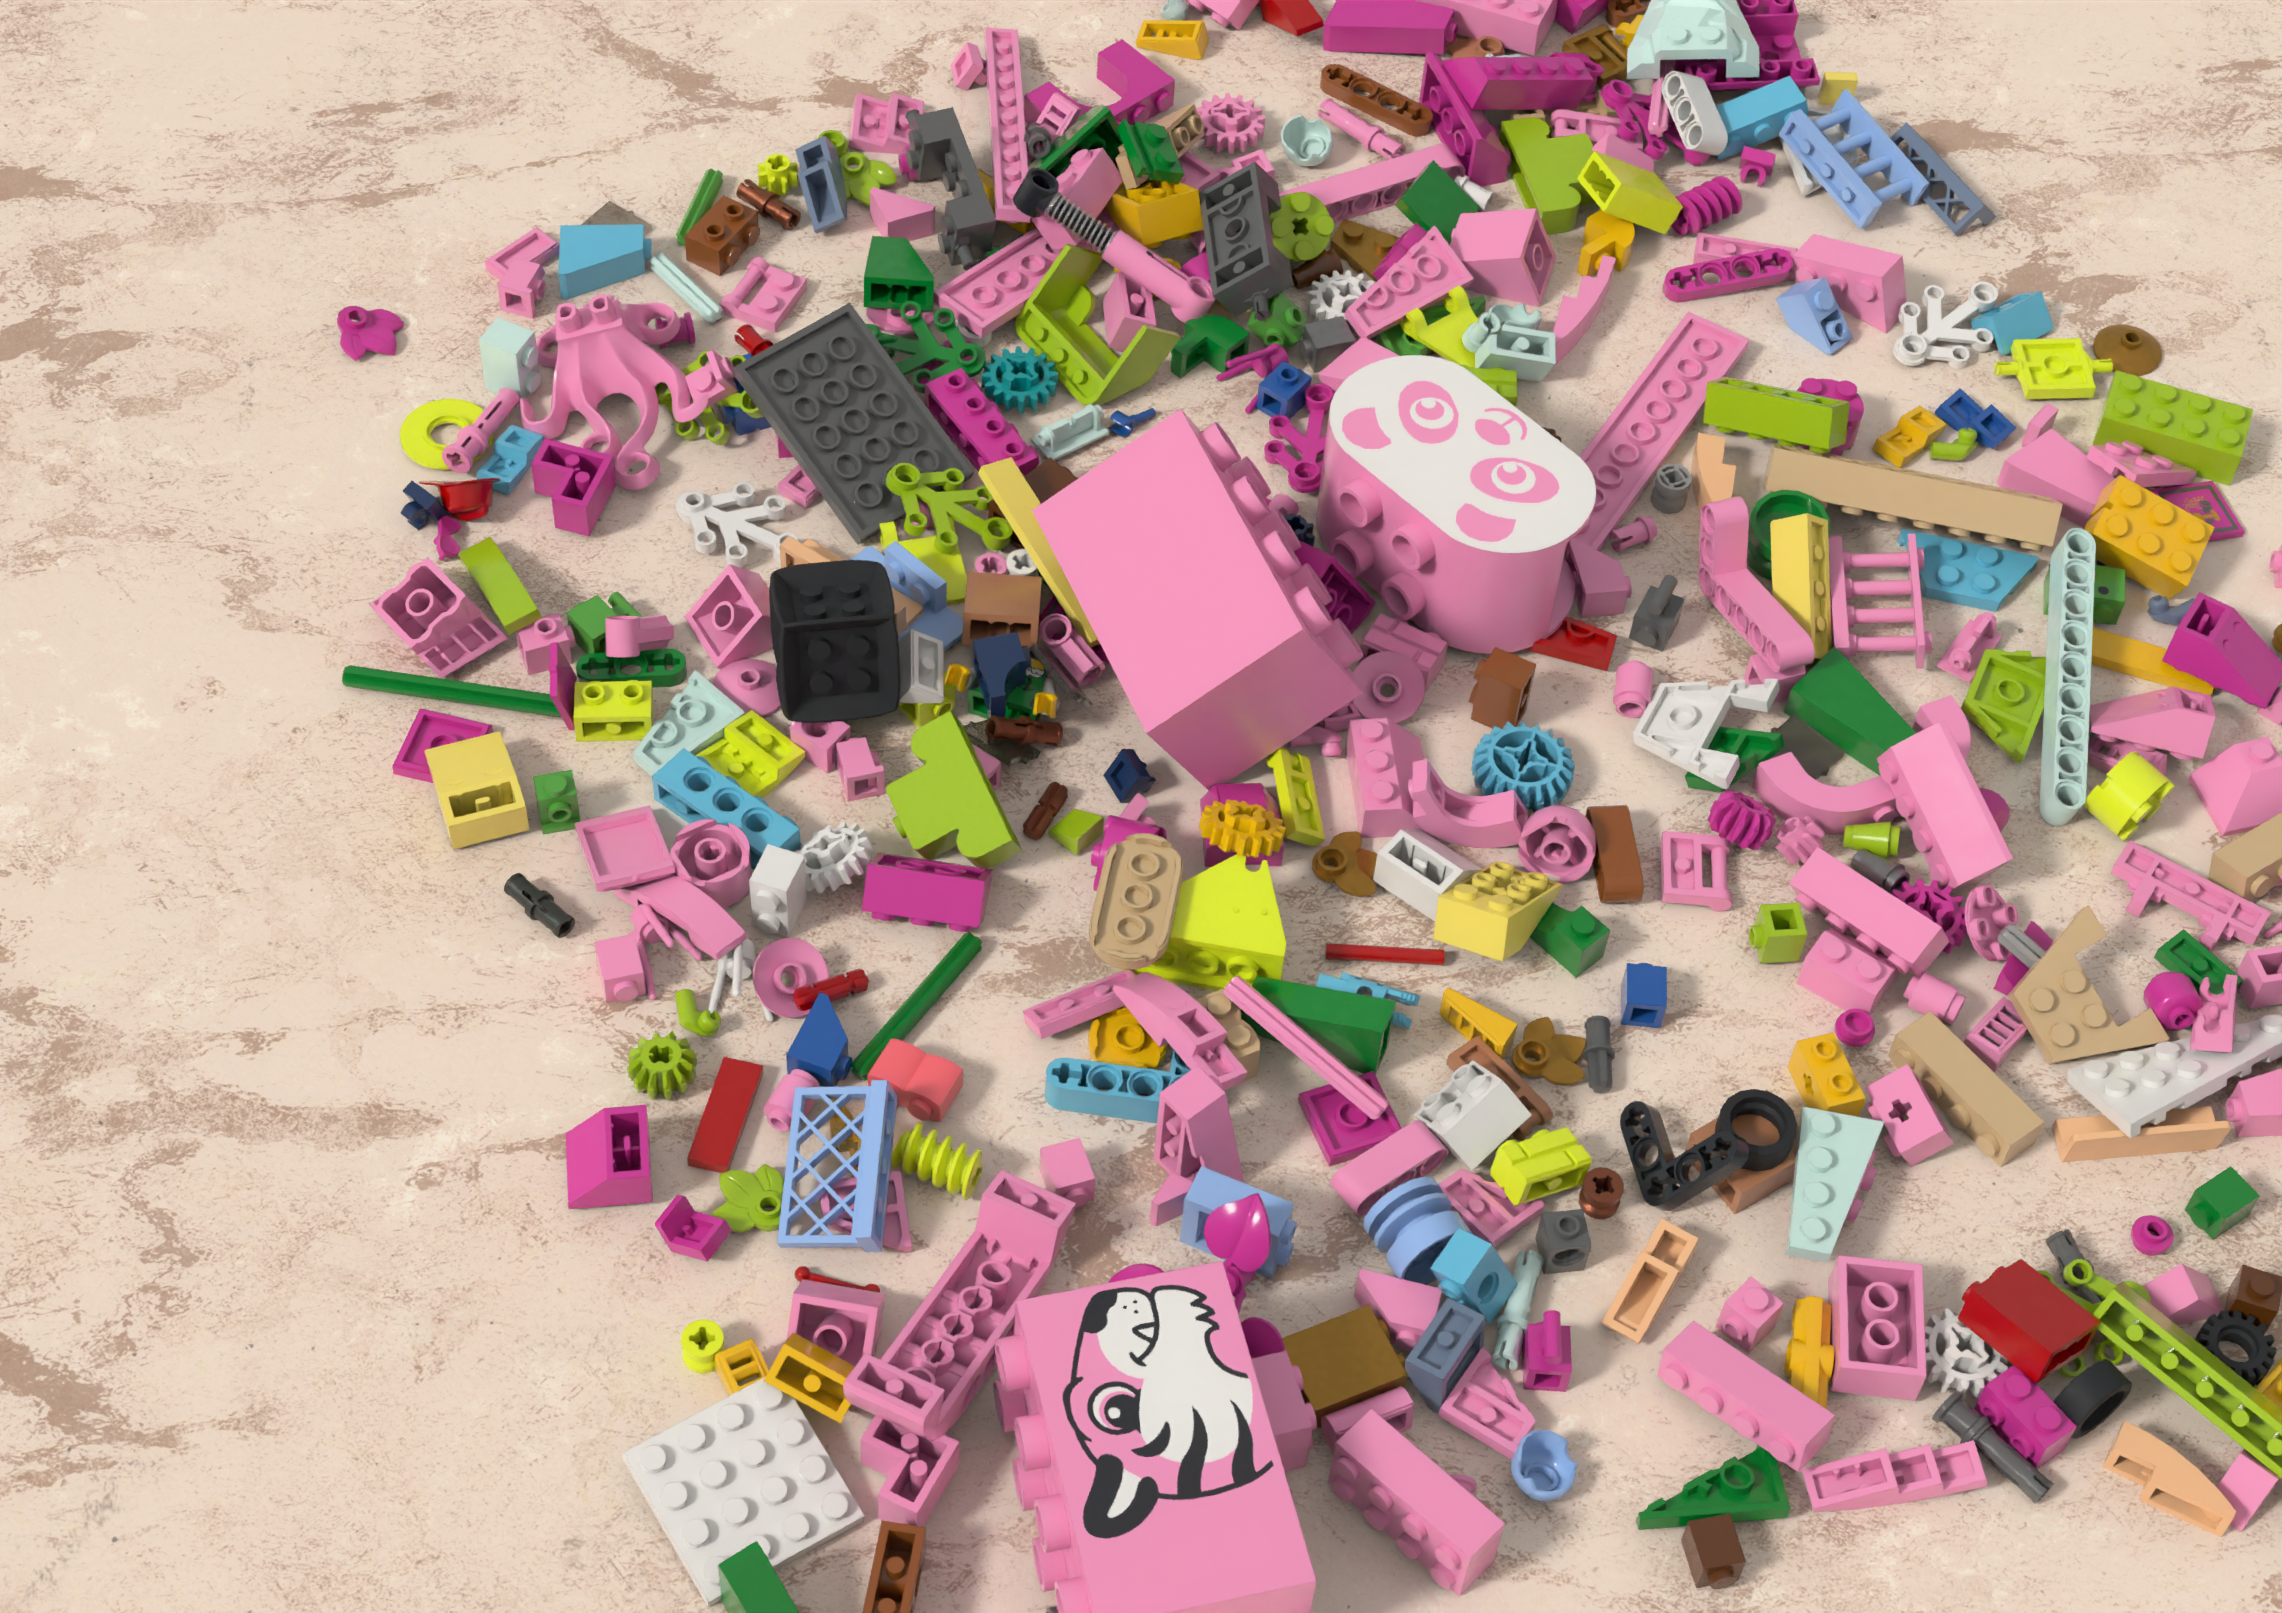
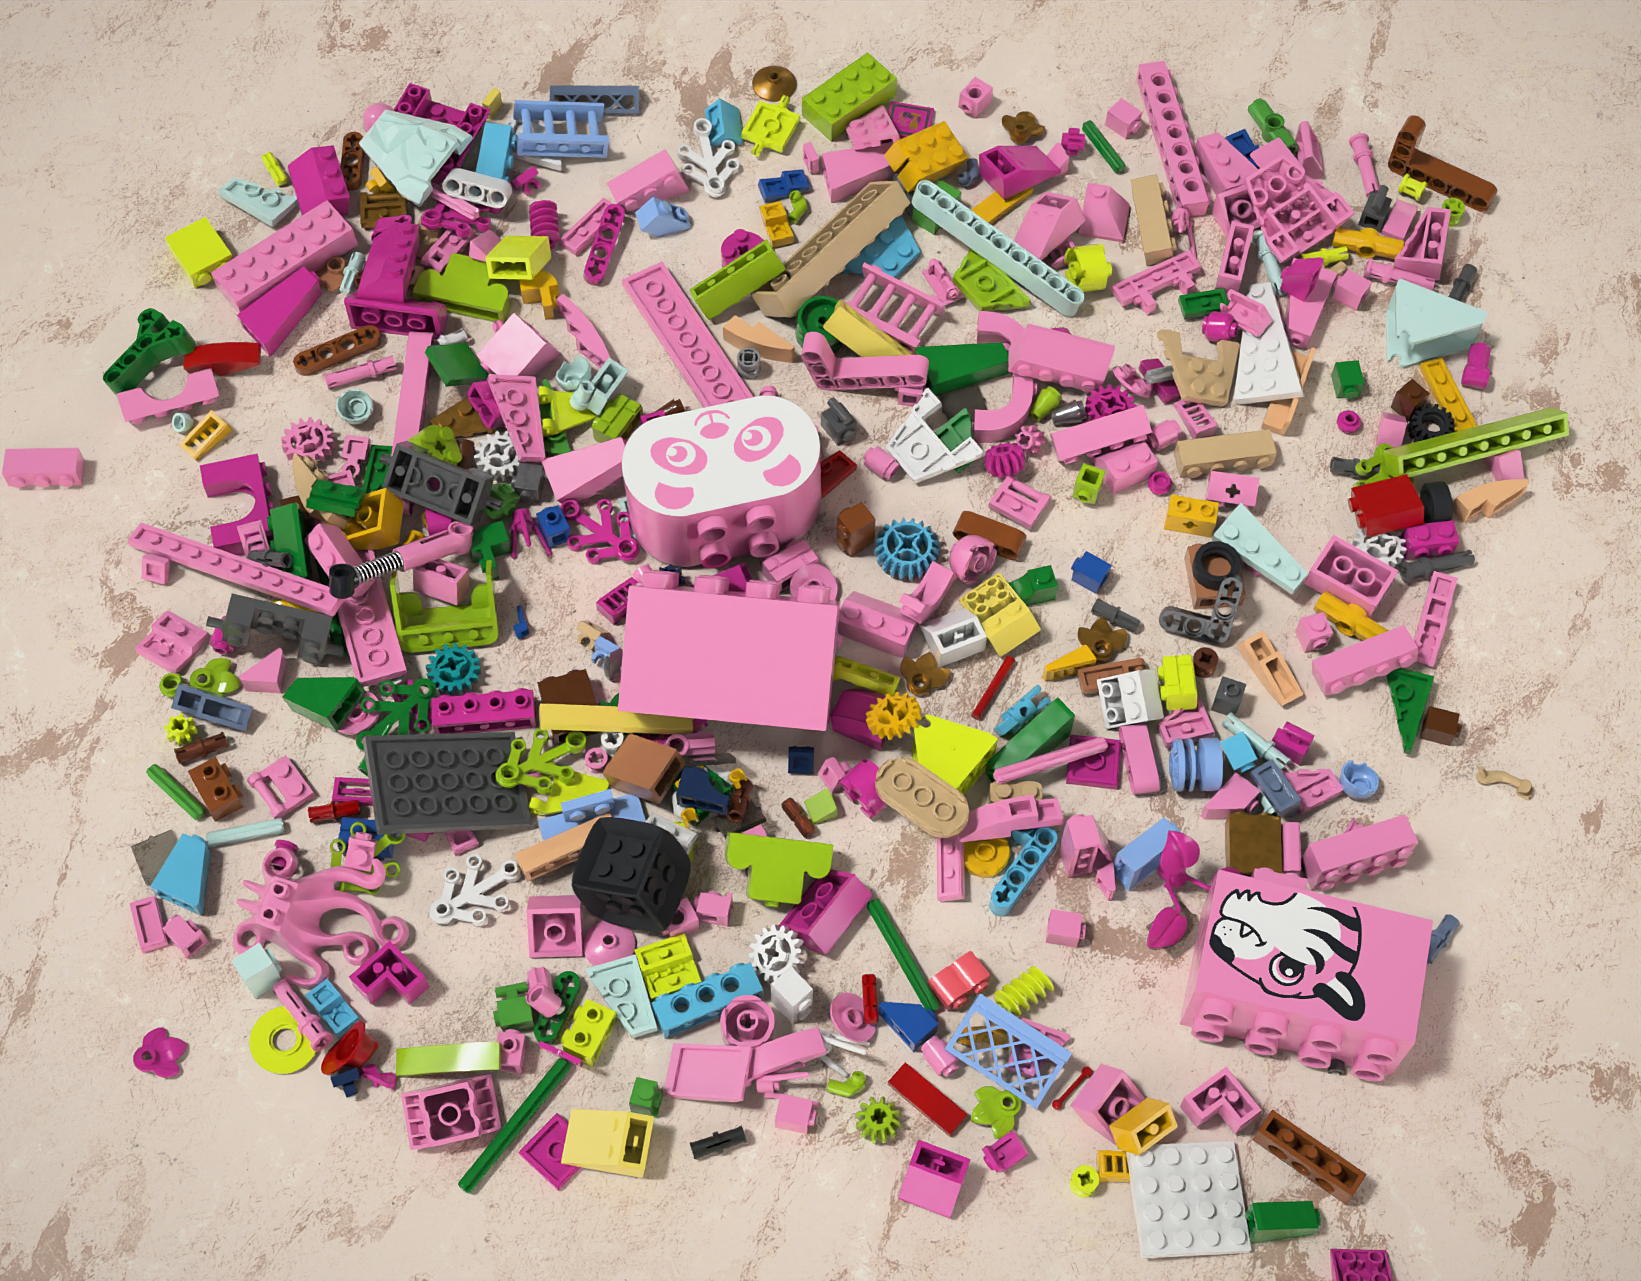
camera: 60 degrees left, 10 degrees up
(950, 1339) = (1147, 1029): bright pink slope -> none
(1071, 434) = (513, 662): light aqua hinge -> none

